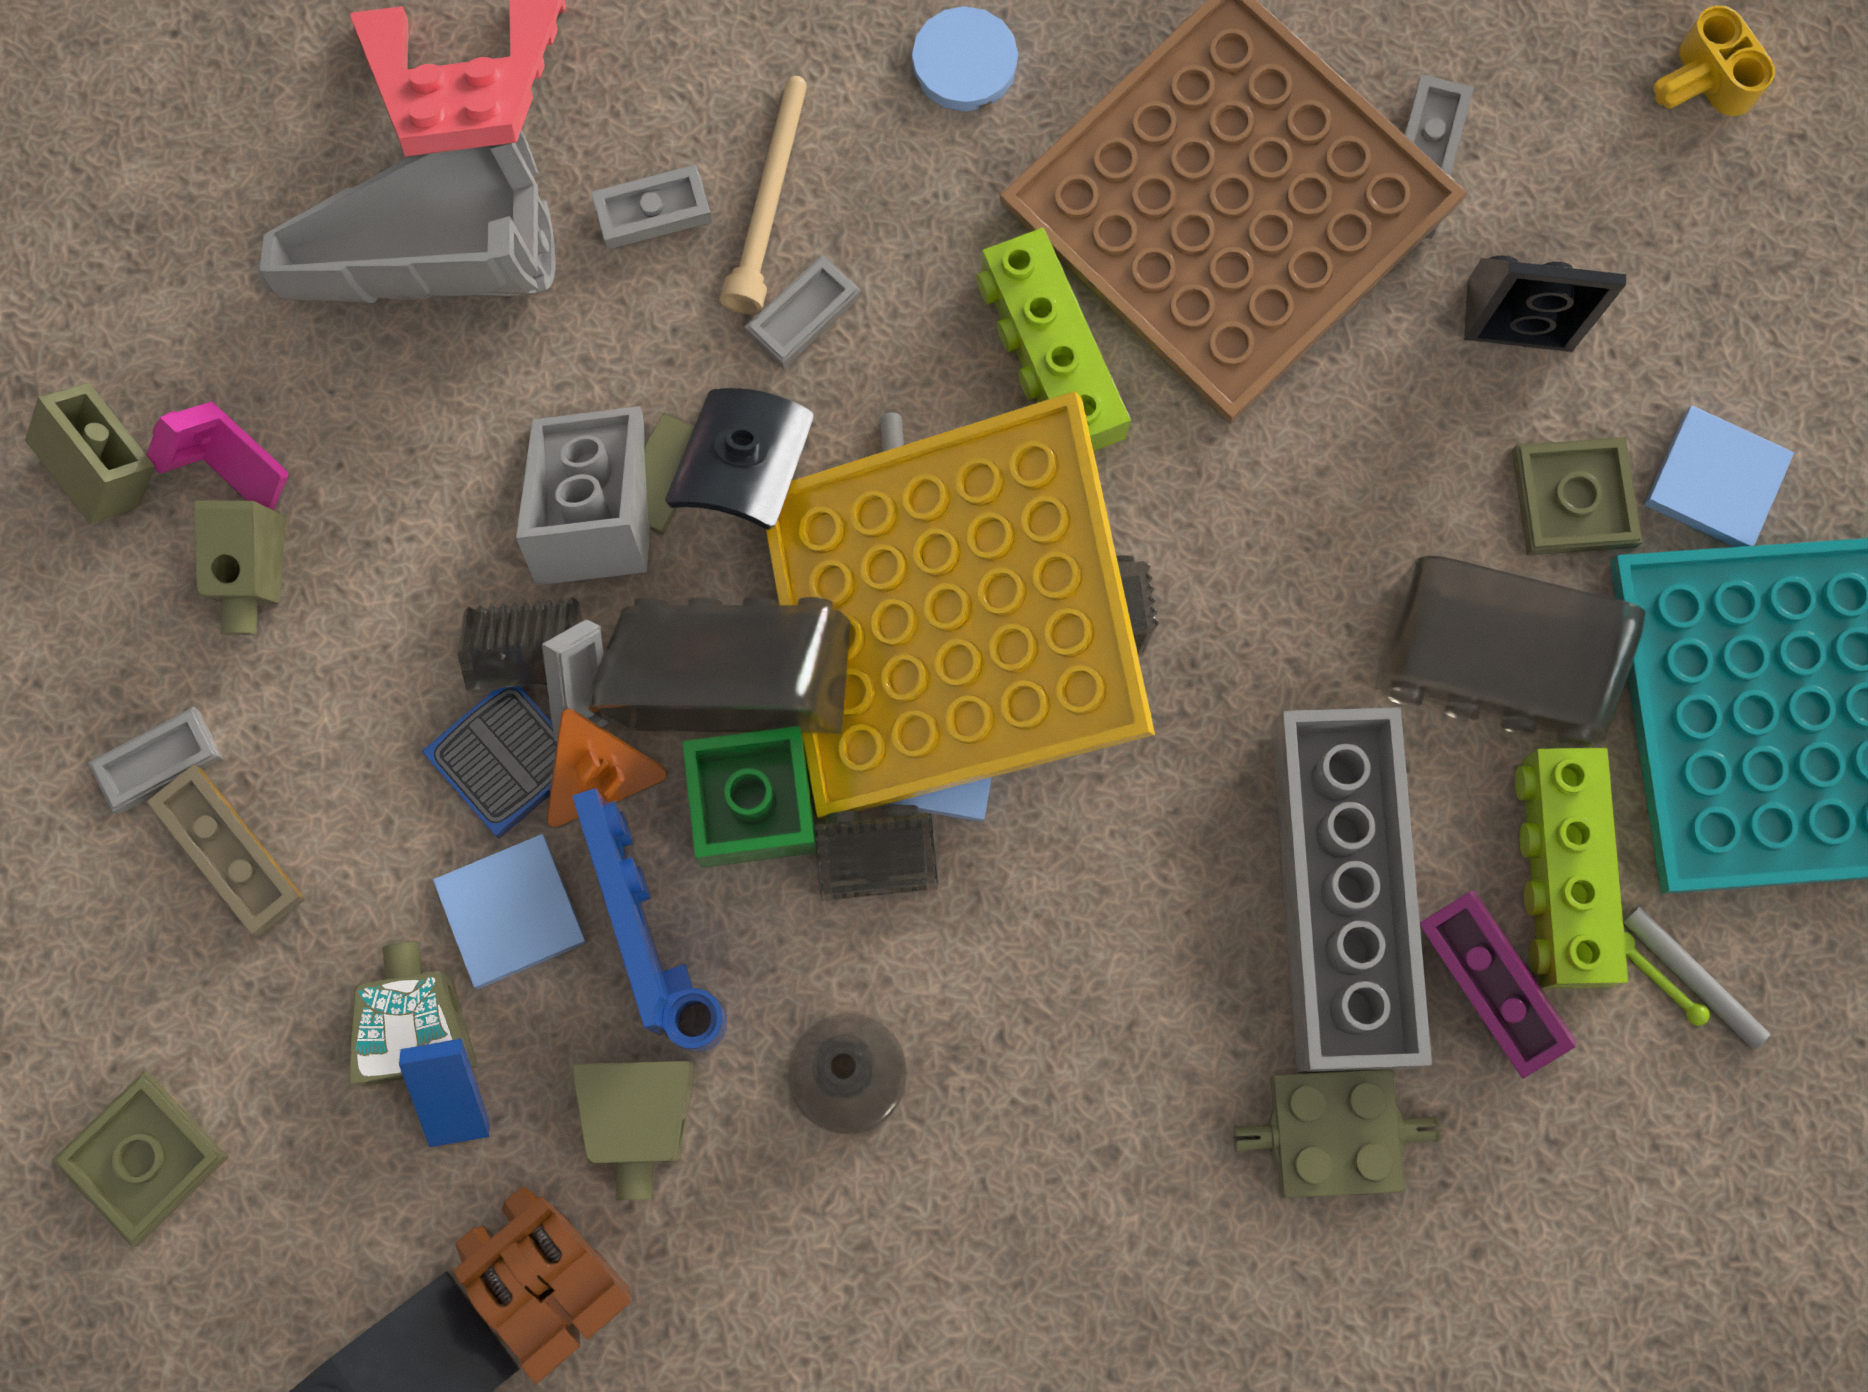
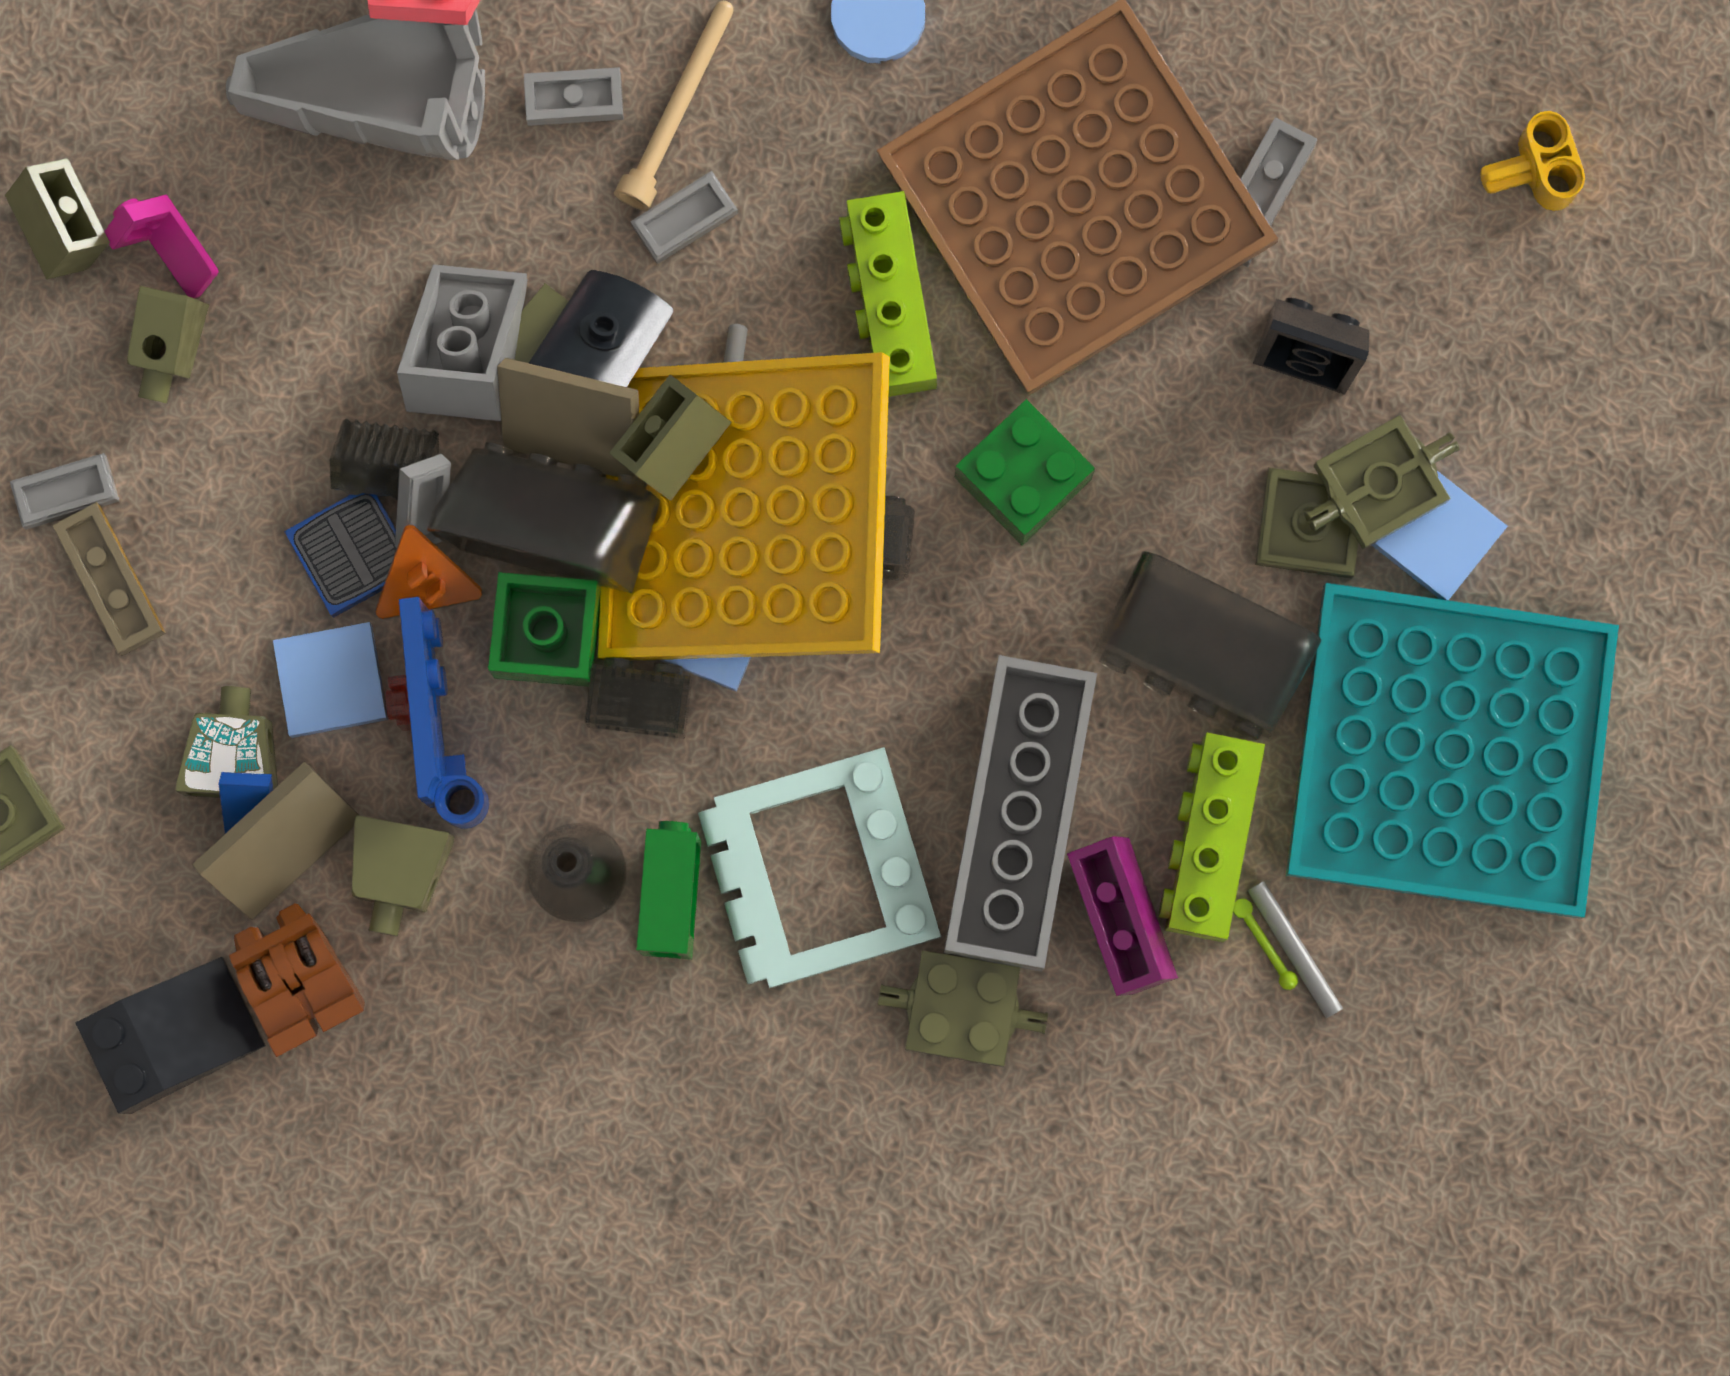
camera: 15 degrees right, 5 degrees up
(483, 1117) = (277, 841): none -> dark tan tile
(596, 918) = (397, 702): none -> clear red plate
(727, 548) = (564, 415): none -> dark tan tile
(849, 542) = (670, 437): none -> olive brick
(967, 1071) = (669, 891): none -> green window
(1201, 963) = (886, 848): none -> light aqua hinge
(1251, 504) = (1024, 472): none -> green brick
(1650, 431) = (1381, 481): none -> olive plate

